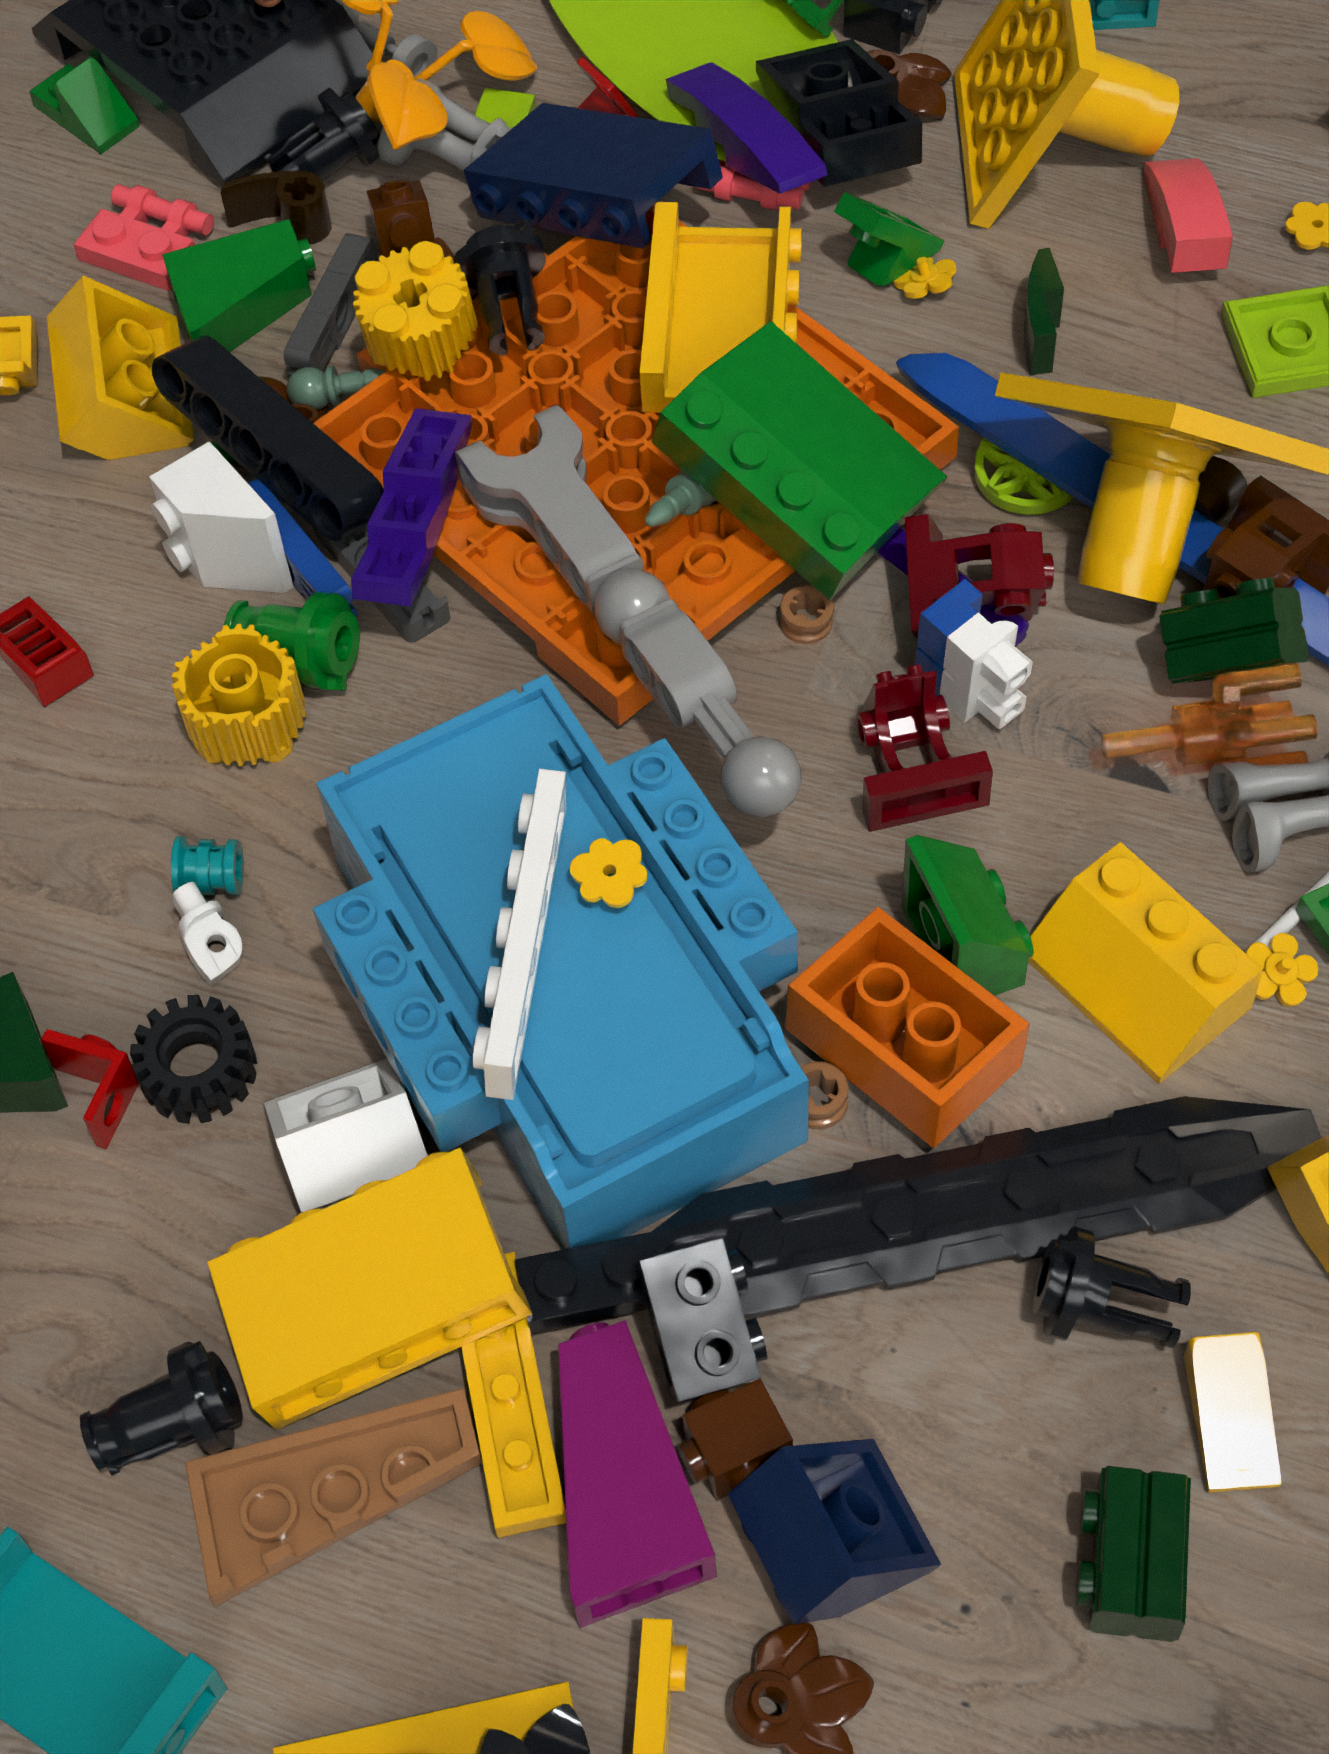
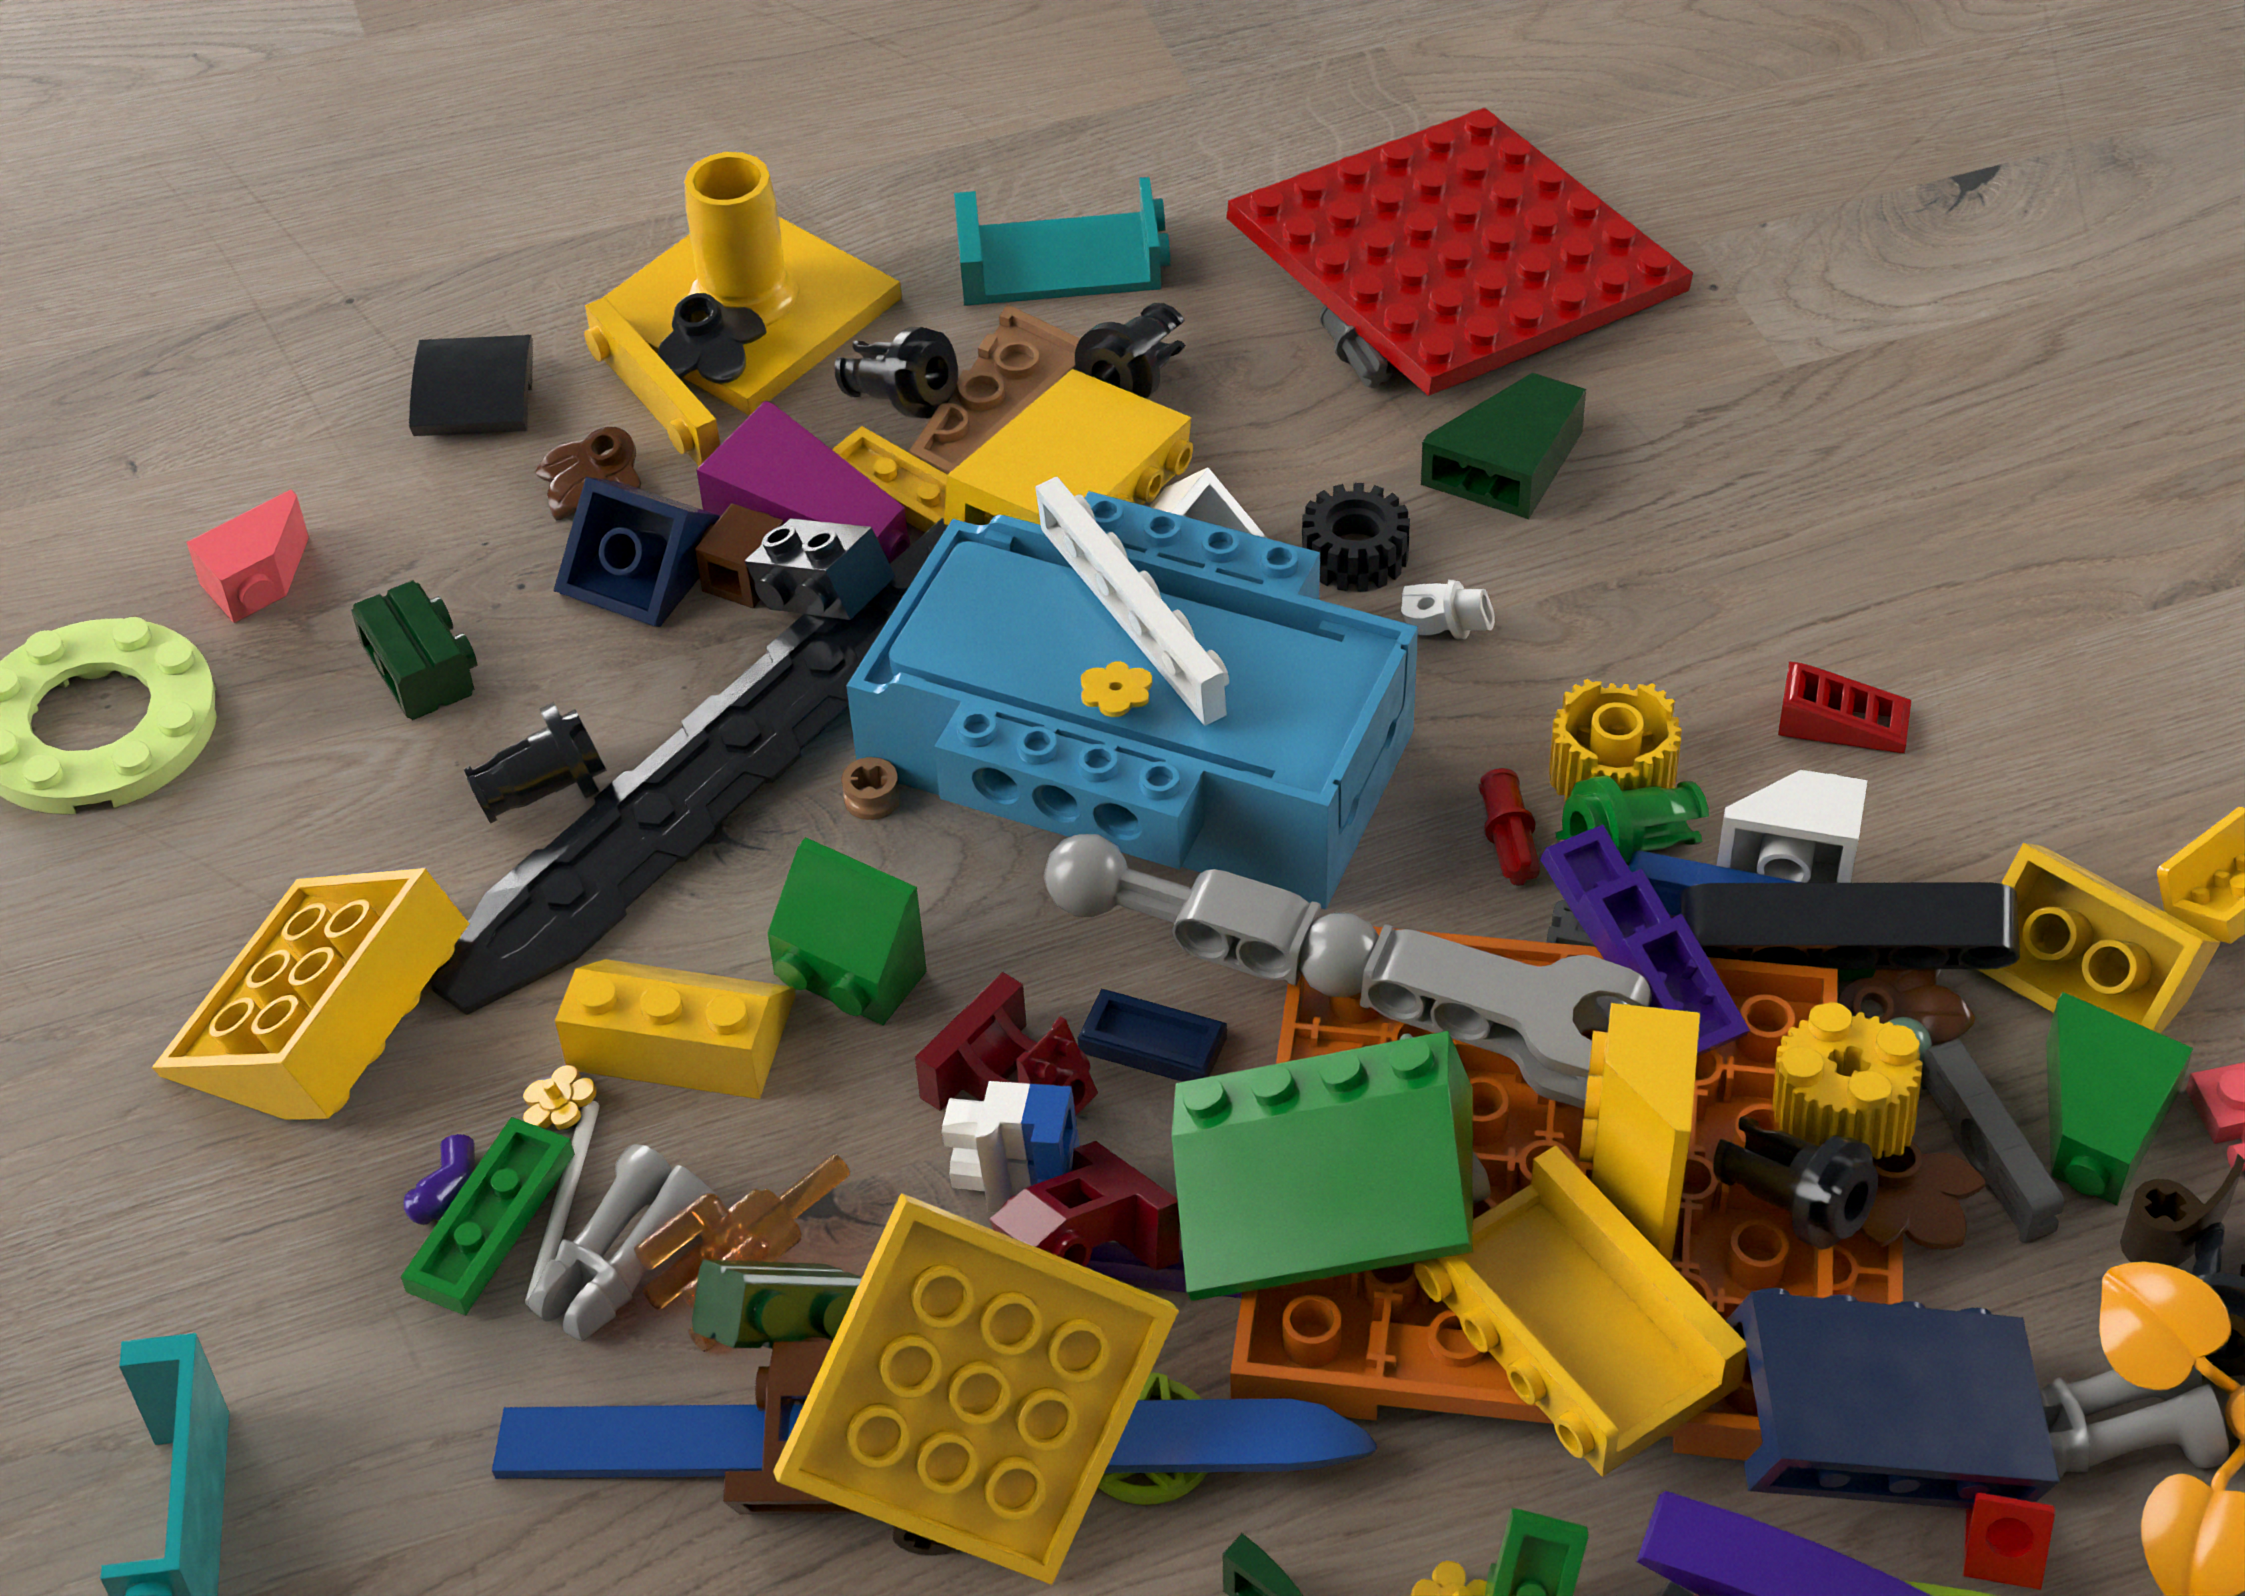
camera: 140 degrees right, 10 degrees down
(101, 1063) = (1421, 487): red bracket -> none
(208, 865) = (1497, 644): teal bush -> none
(369, 715) = (1509, 825): none -> red axle
(394, 1532) = (912, 371): none -> black piece
(400, 215) = (2034, 1258): reddish brown brick -> none
(504, 104) = (2113, 1501): lime tile -> none
(577, 317) = (1642, 1115): none -> yellow slope
(775, 711) = (1152, 1037): none -> dark blue tile
(906, 1026) = (854, 806): orange brick -> none
(1232, 1411) = (403, 777): slope -> none

